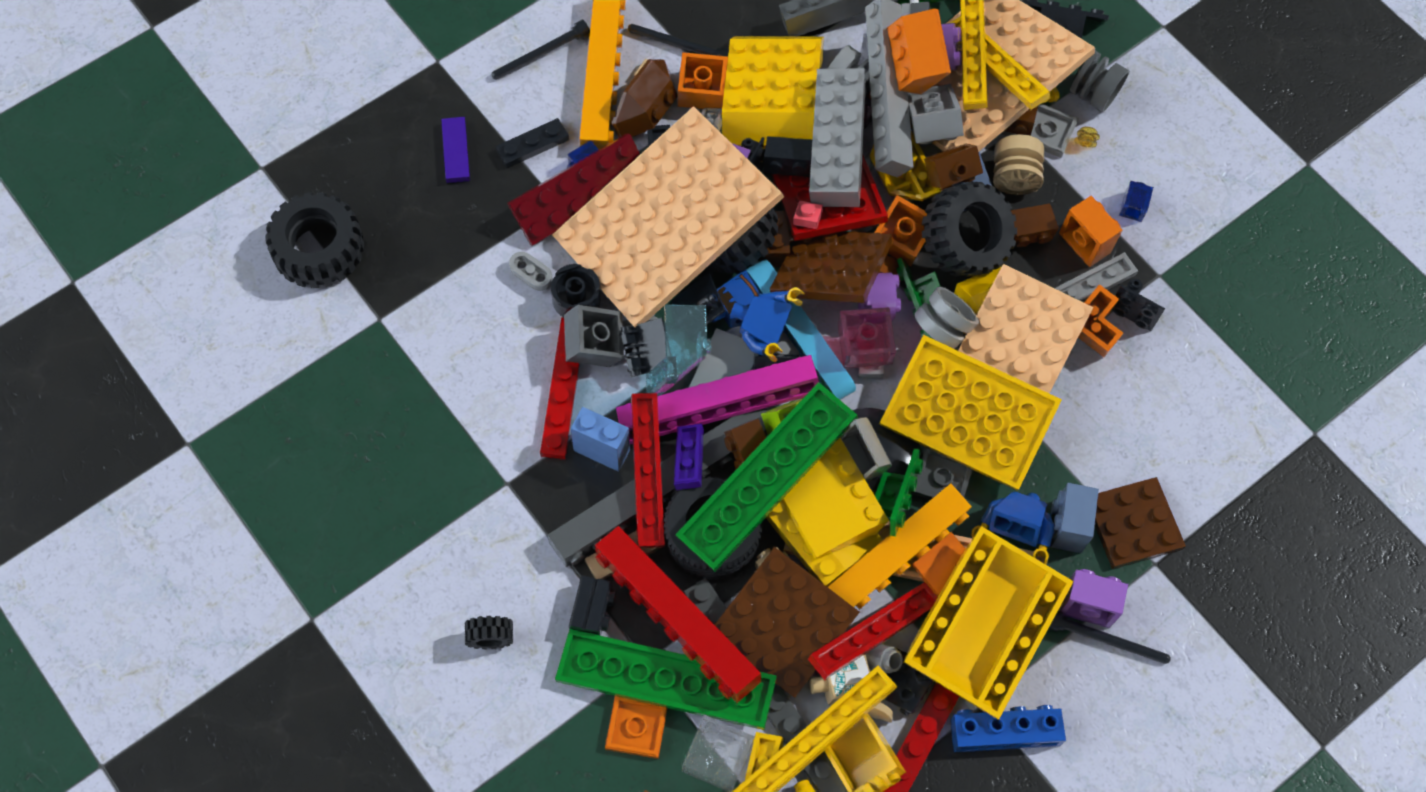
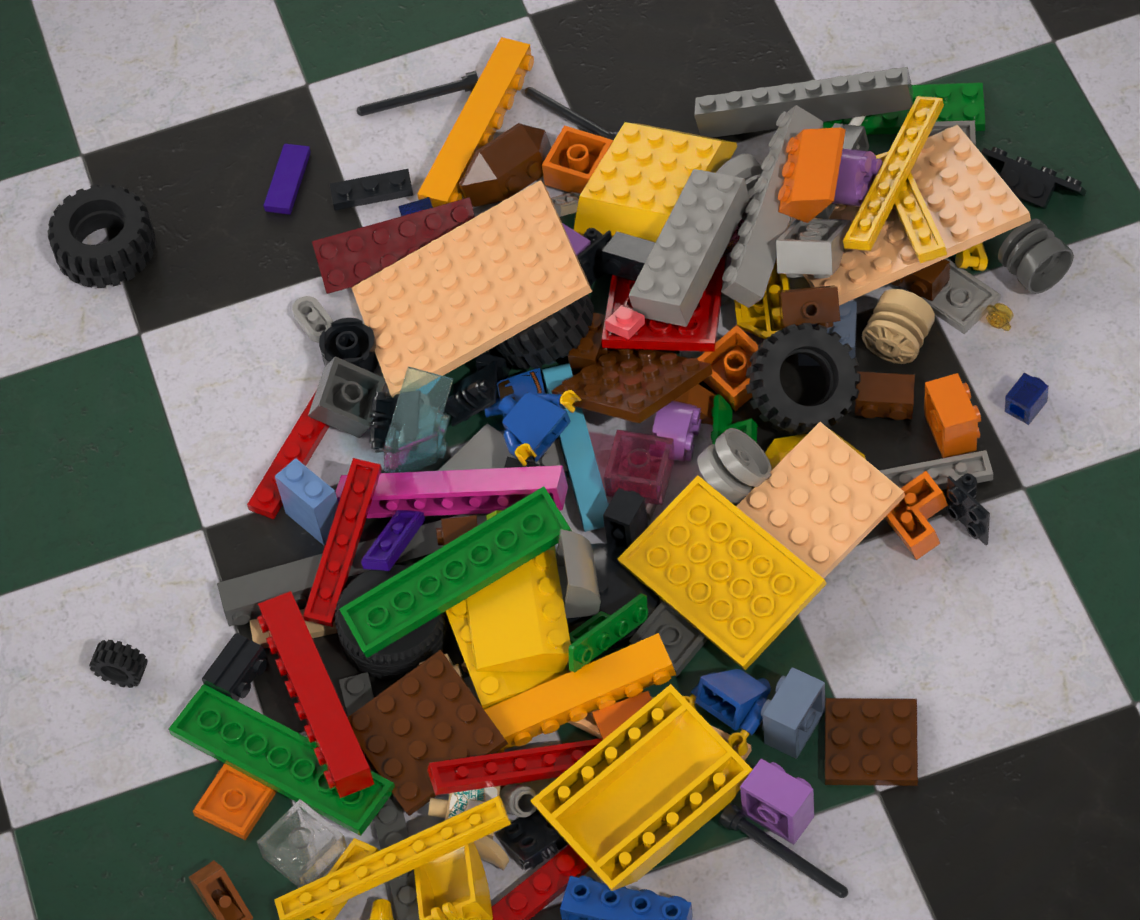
camera: 30 degrees right, 10 degrees down
(872, 385) = (625, 518): none -> black brick

